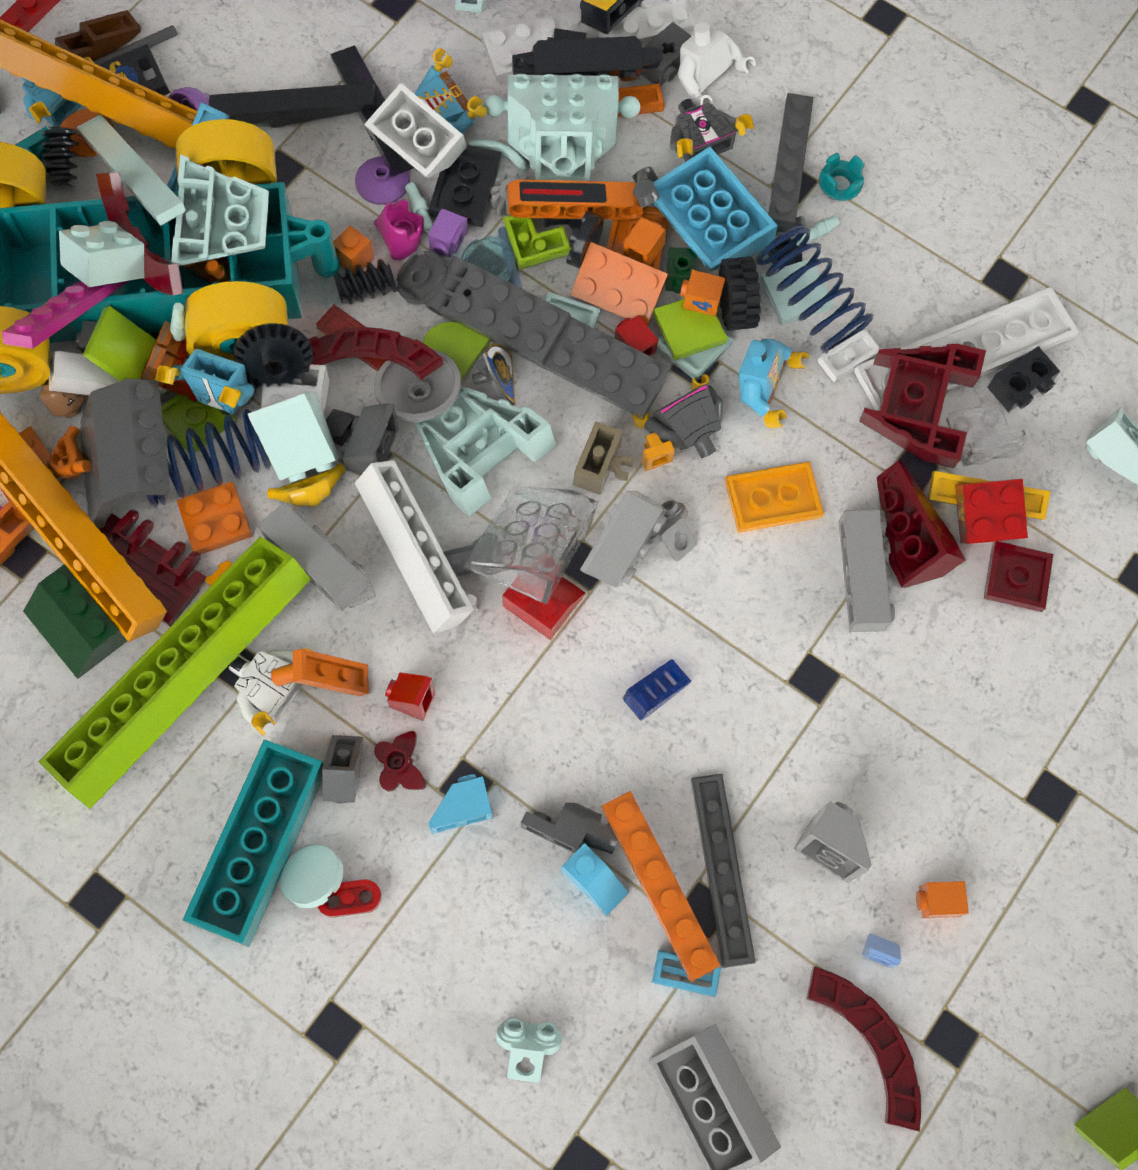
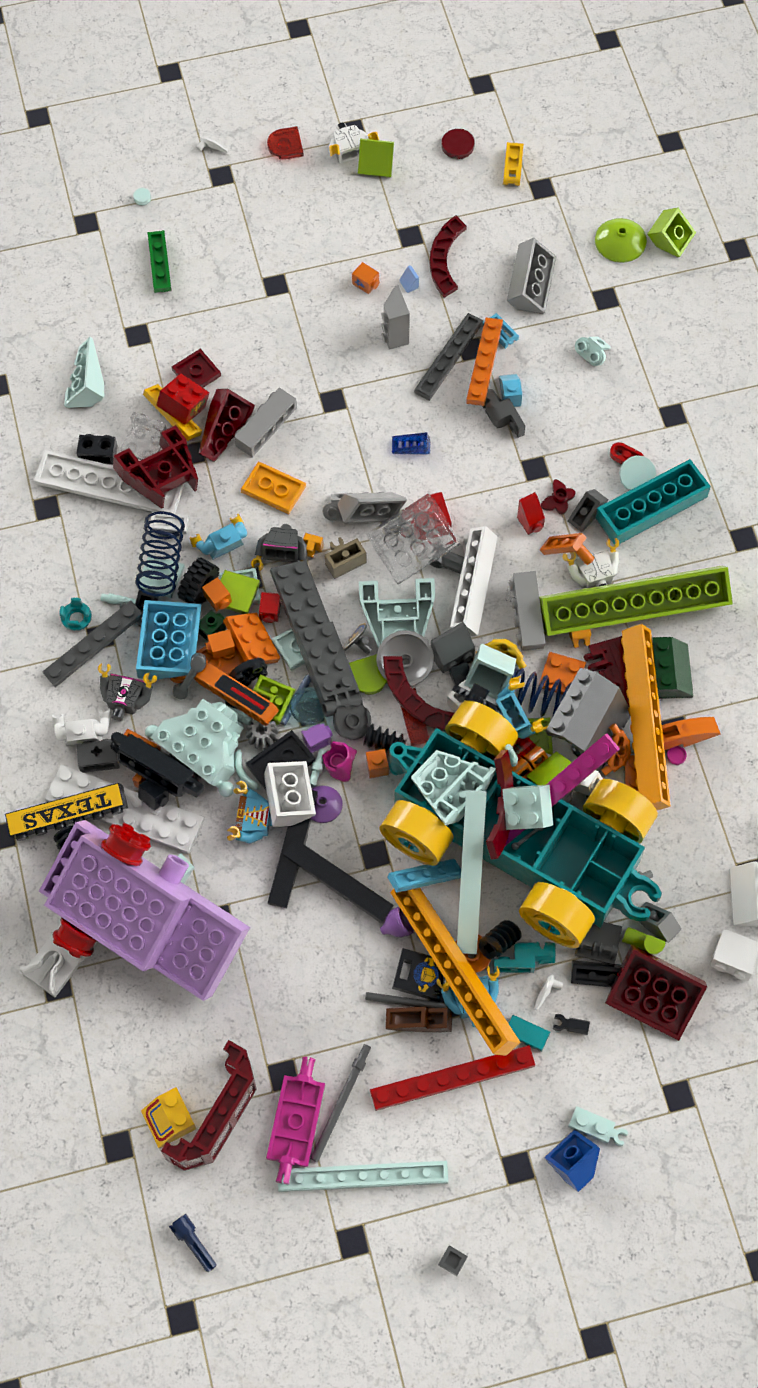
camera: 135 degrees left, 5 degrees down
(462, 805) = (545, 456): medium azure slope -> none

